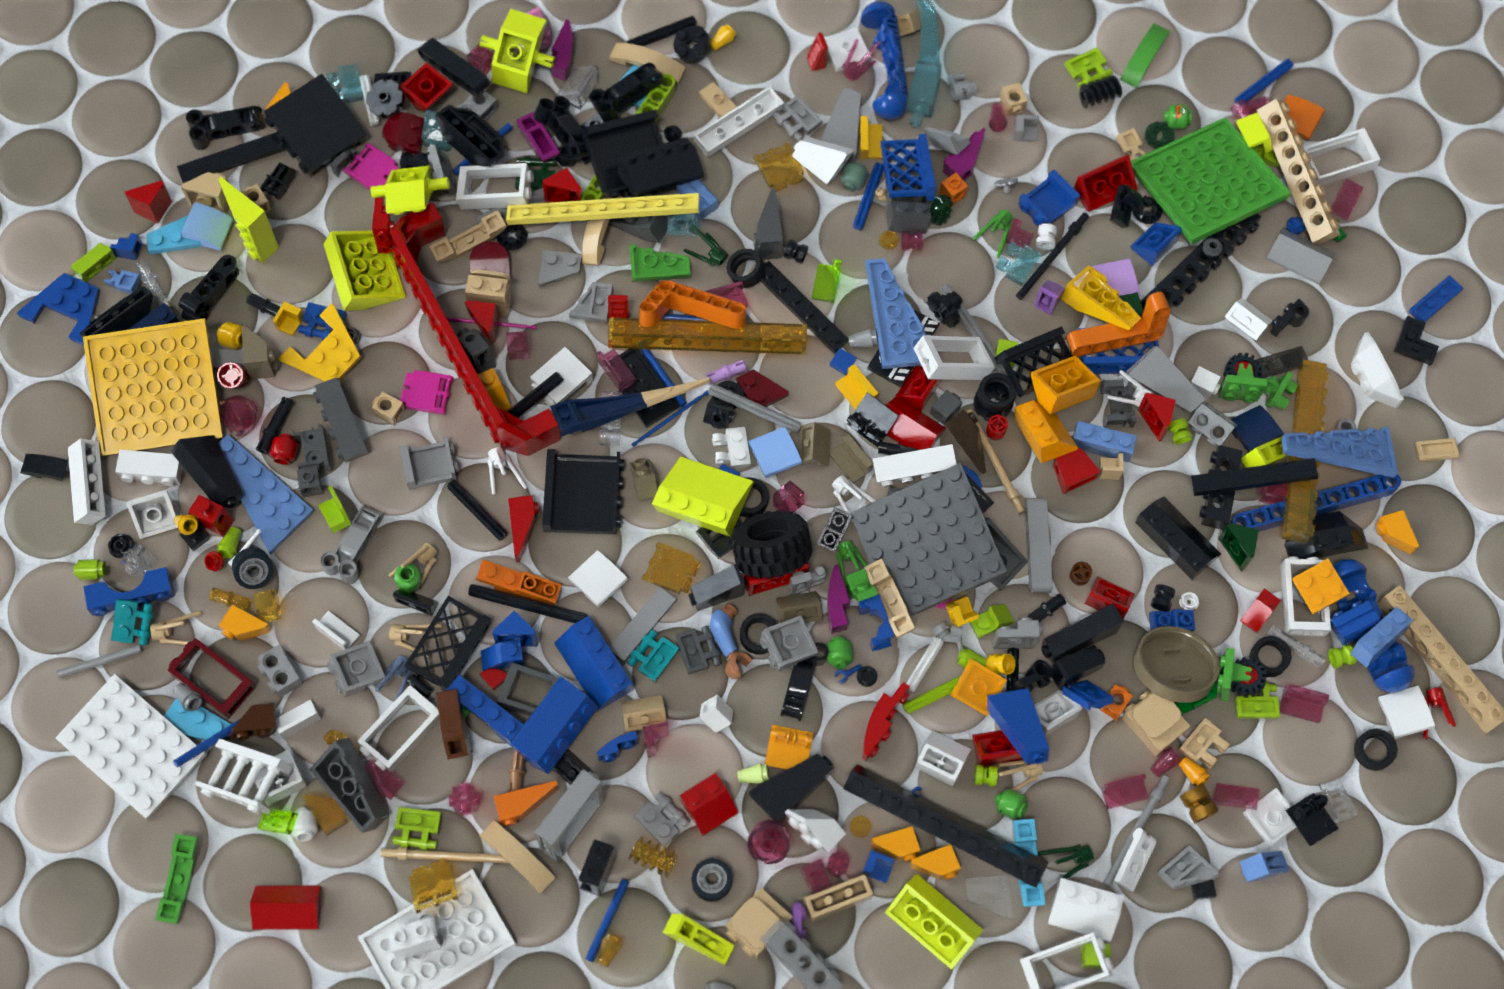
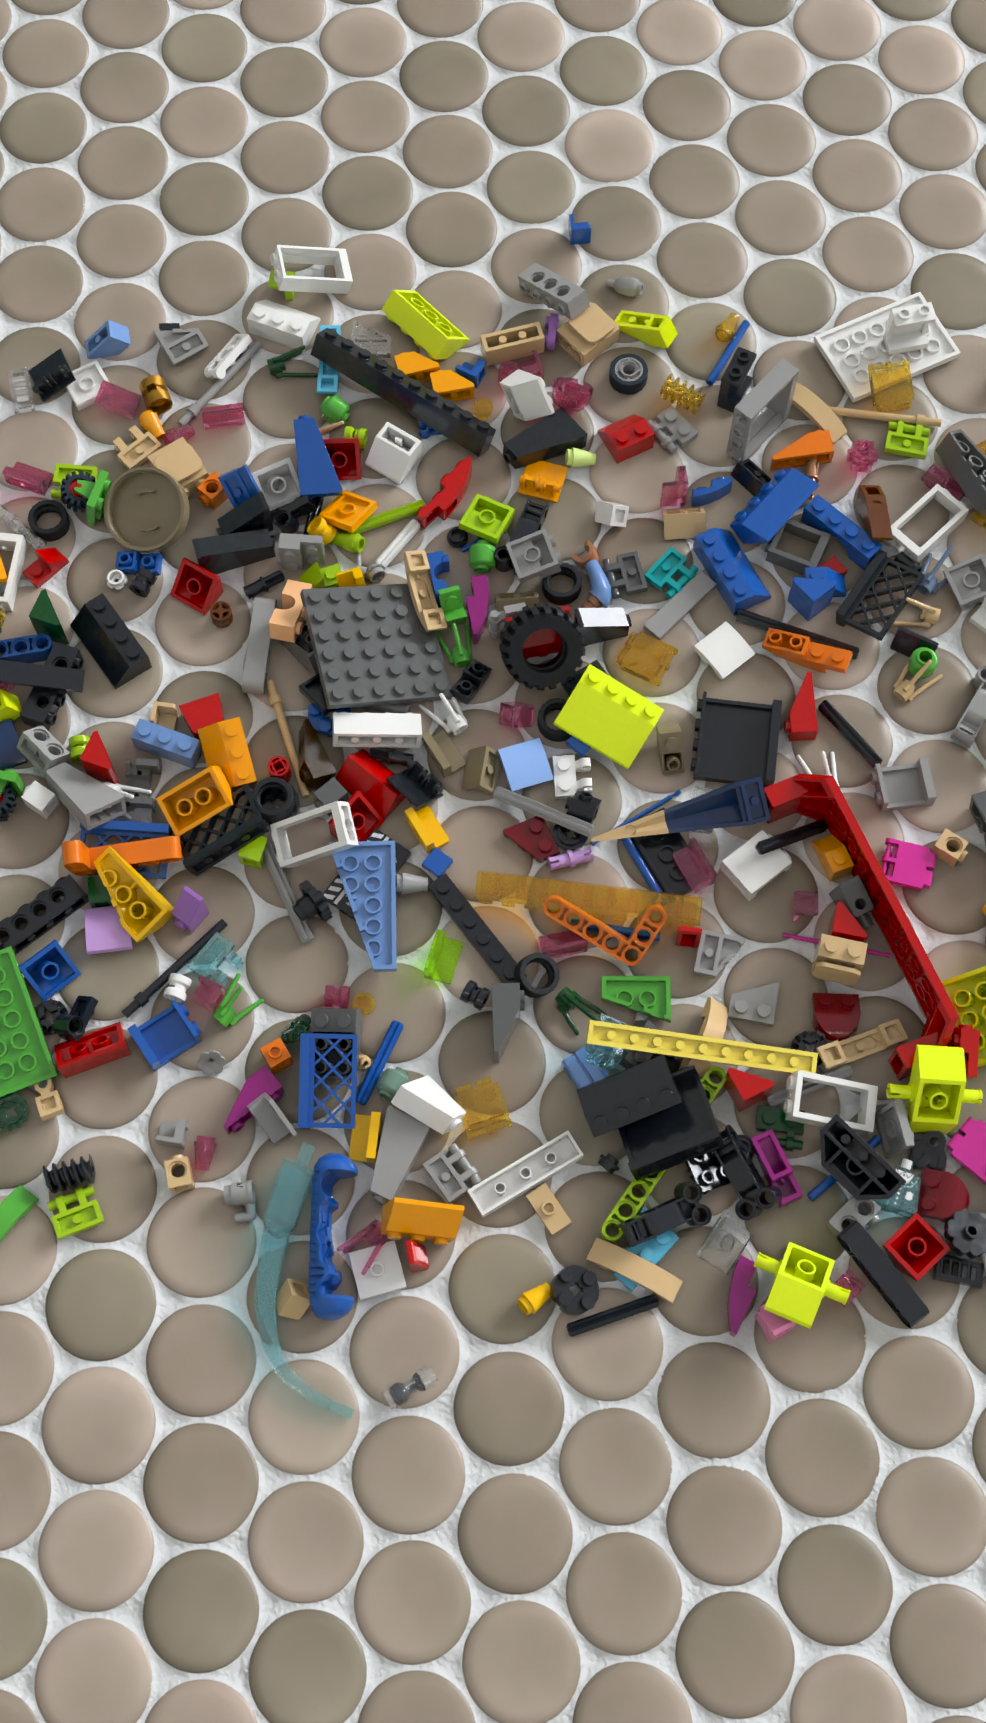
camera: 170 degrees left, 0 degrees up
(818, 75) = (421, 1220): none -> light orange slope
(839, 690) = (487, 518): none -> lime plate
(1013, 555) = (288, 623): none -> light nougat arch

